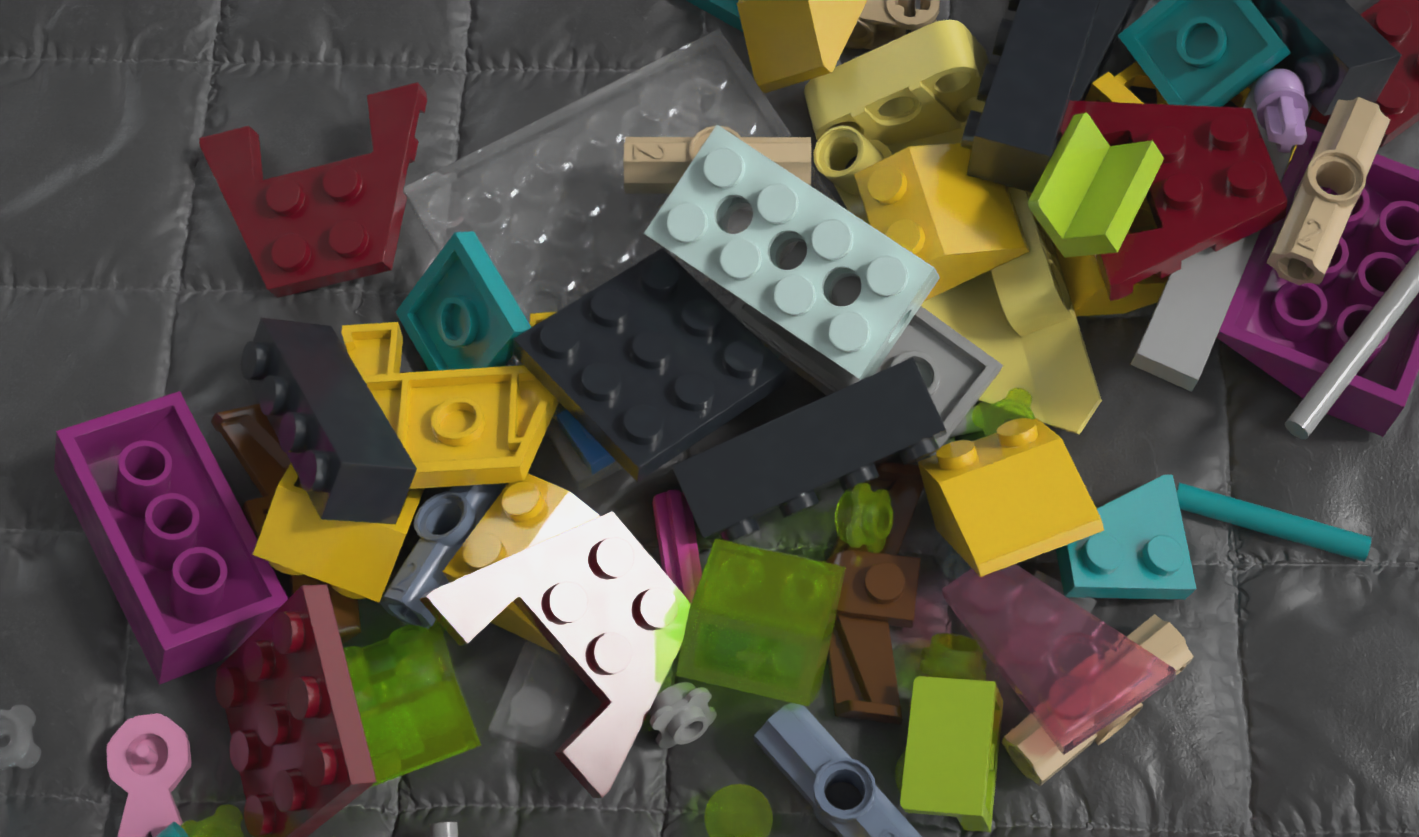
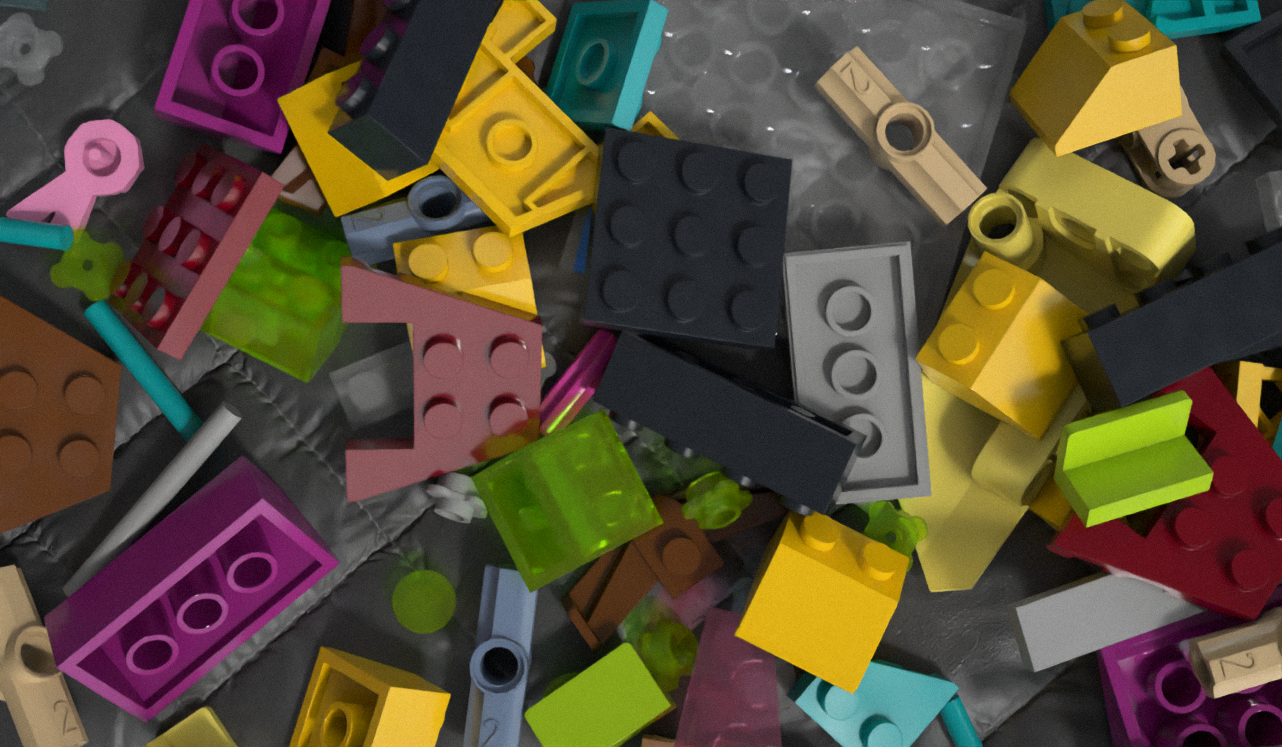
camera: 45 degrees right, 20 degrees up
(785, 211) = (817, 264): light aqua brick -> none

